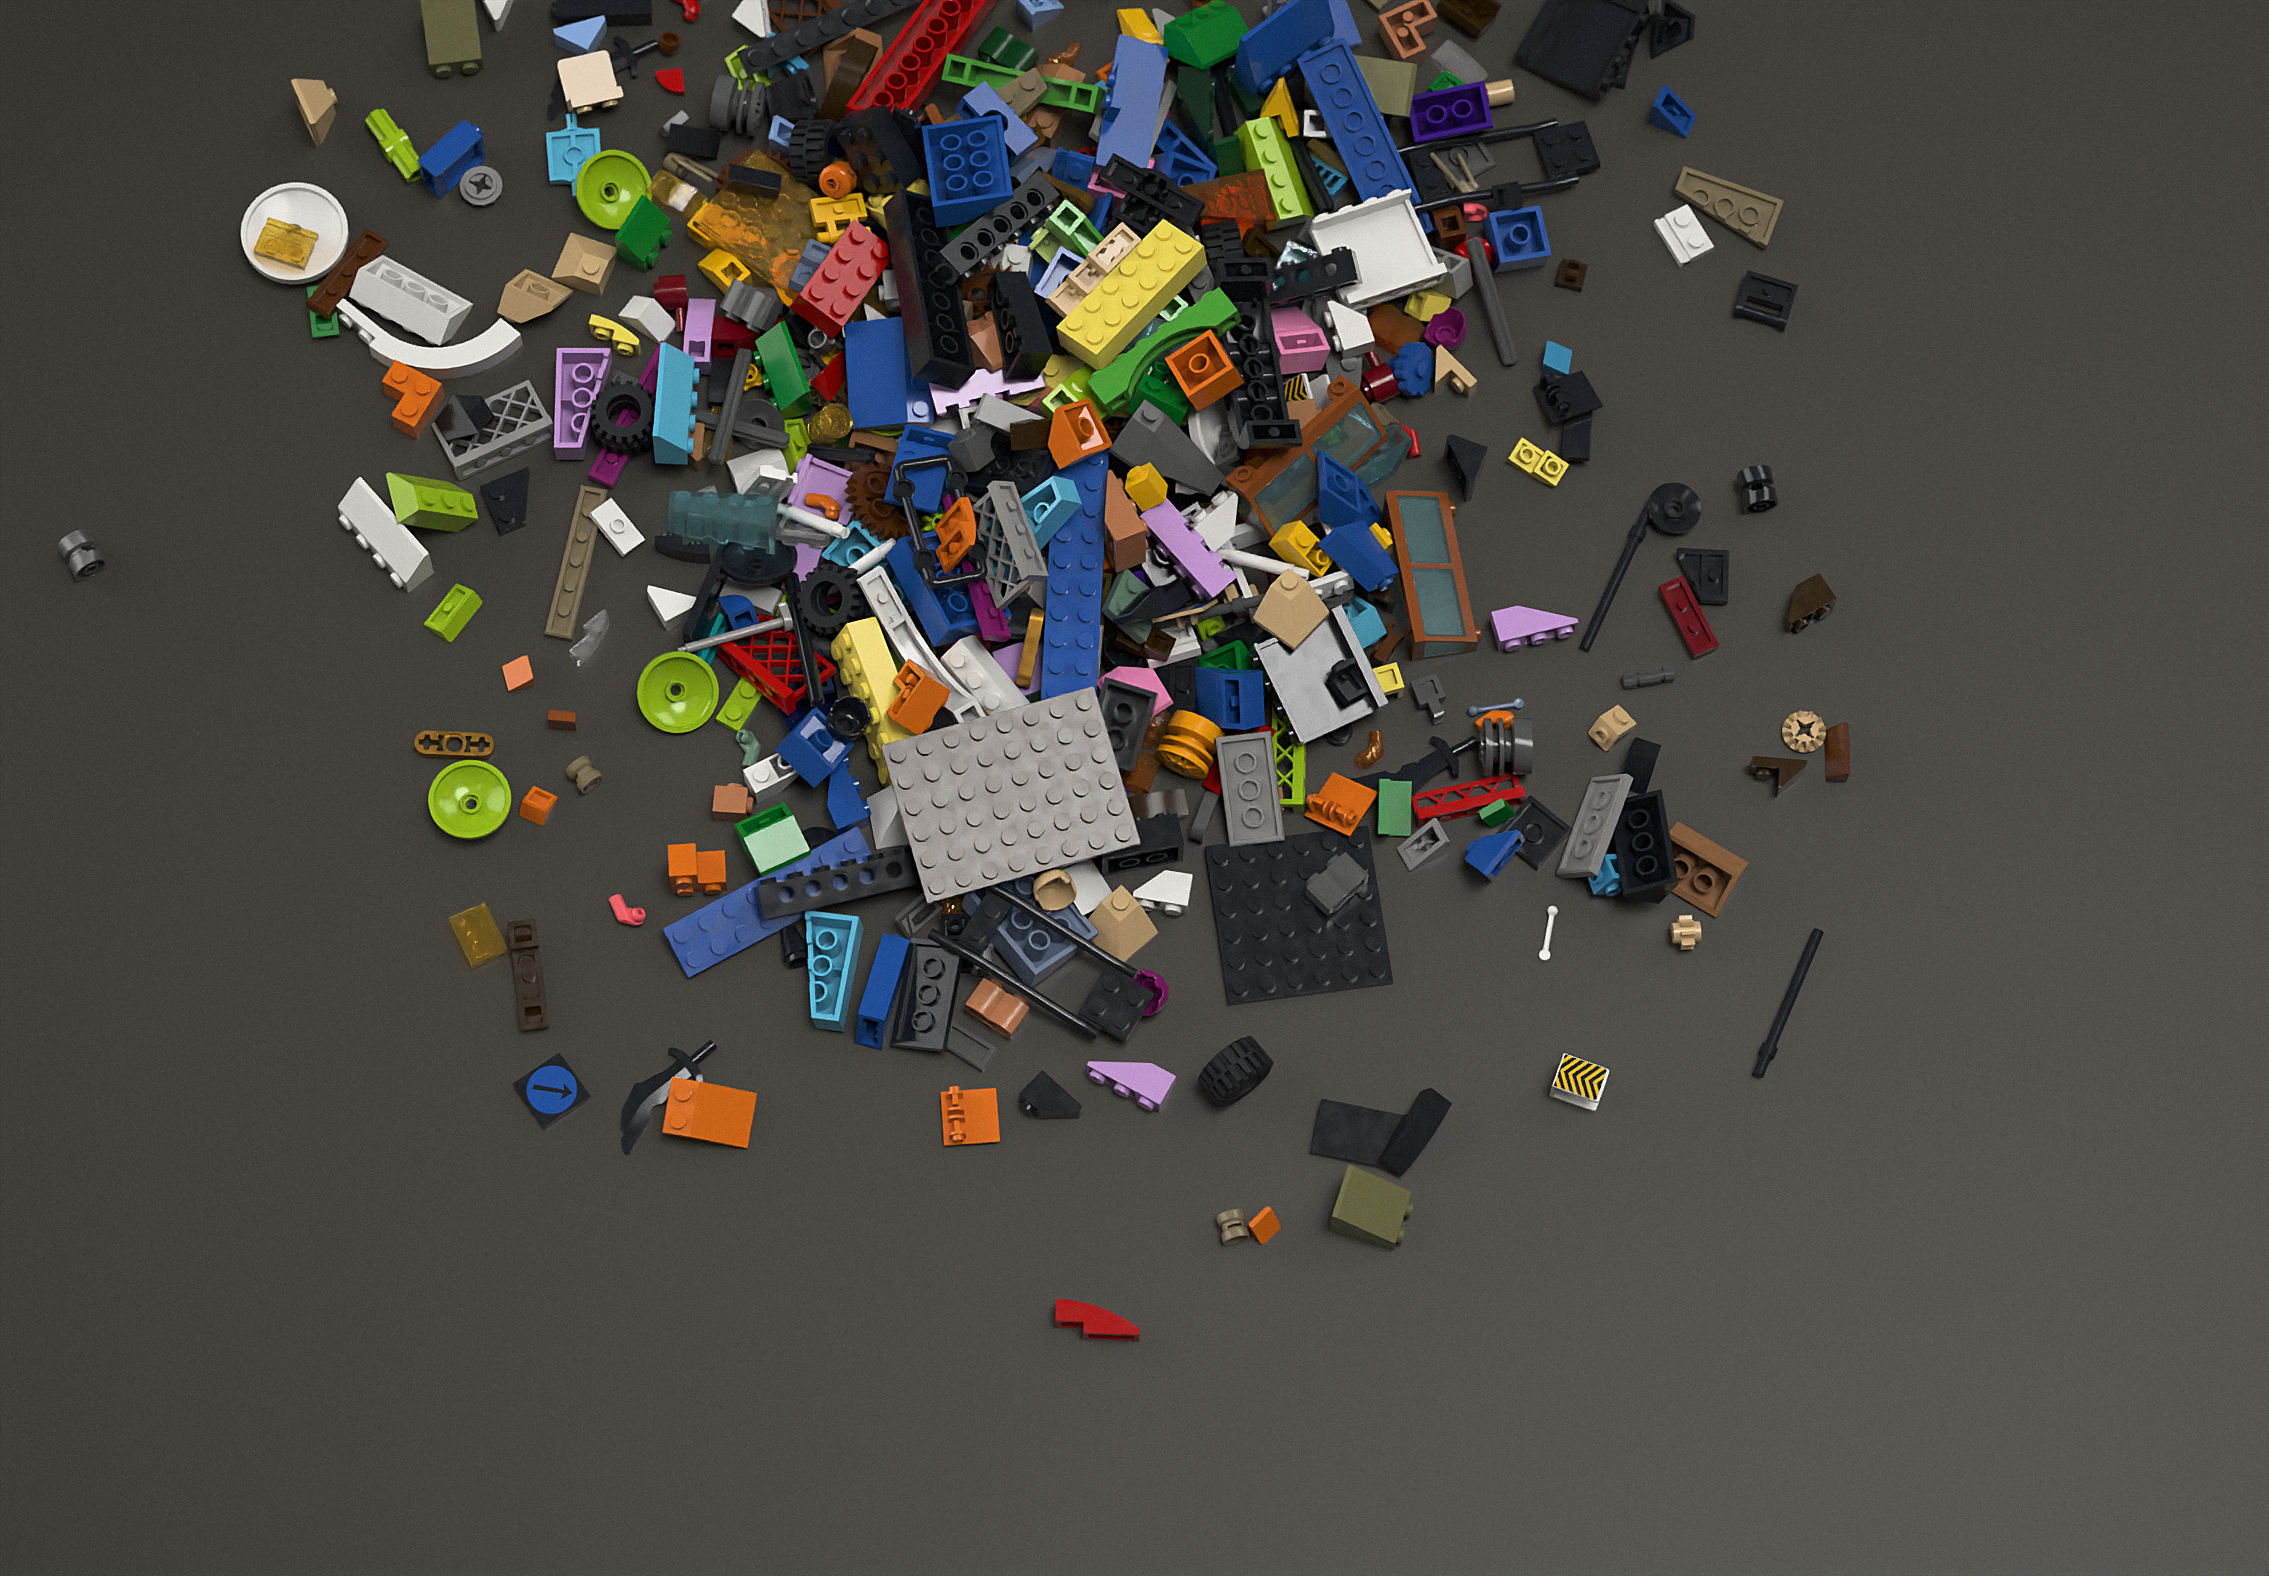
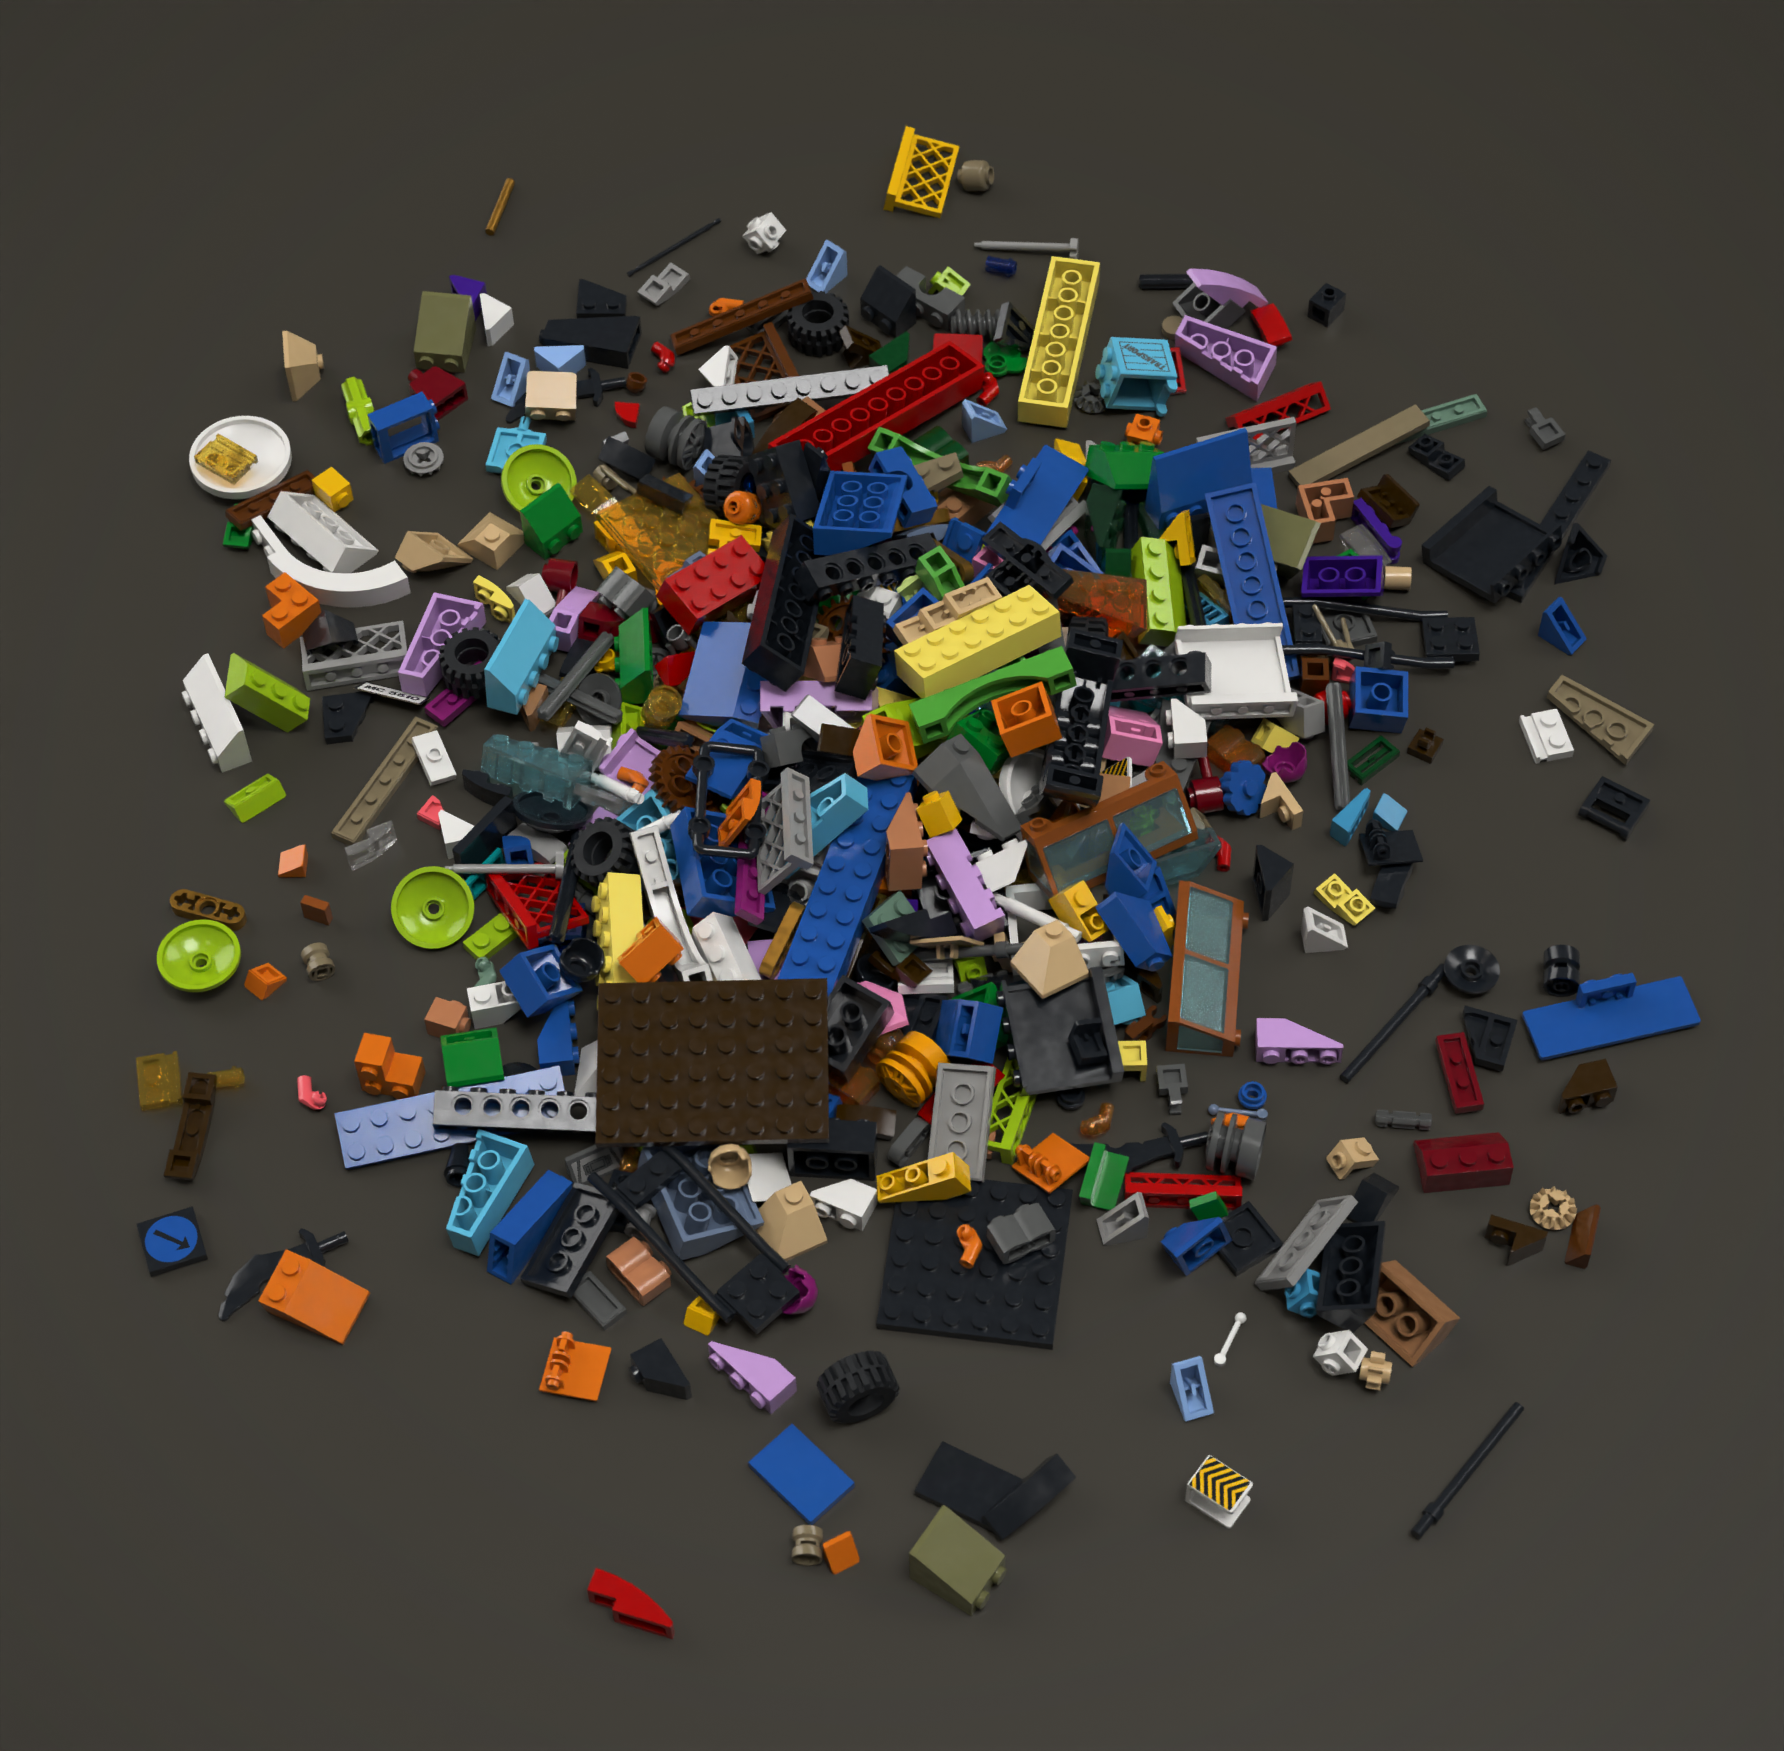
camera: 20 degrees right, 15 degrees down
(403, 247) = (332, 489): none -> yellow brick
(465, 101) = (440, 386): none -> dark red torso
(540, 73) = (511, 379): none -> light blue slope
(543, 915) = (229, 1077): none -> clear yellow pin
(547, 465) = (391, 692): none -> sticker
(635, 586) = (429, 812): none -> coral tile
(1067, 1037) = (700, 1317): none -> yellow slope
(1205, 1162) = (801, 1474): none -> blue tile
(1233, 855) = (927, 1180): none -> yellow slope
(1294, 906) = (971, 1243): none -> orange arm
(1450, 29) = (1366, 516): none -> dark purple plate
(1507, 681) = (1252, 1089): none -> blue plate
(1512, 320) = (1363, 777): none -> dark green tile
(1519, 379) = (1347, 820): none -> dark azure slope
(1526, 504) = (1321, 932): none -> white slope
(1529, 992) = (1191, 1388): none -> light blue slope
(1651, 924) = (1340, 1352): none -> white brick
(1713, 705) = (1463, 1162): none -> dark red slope
(1812, 523) = (1610, 1014): none -> blue bracket

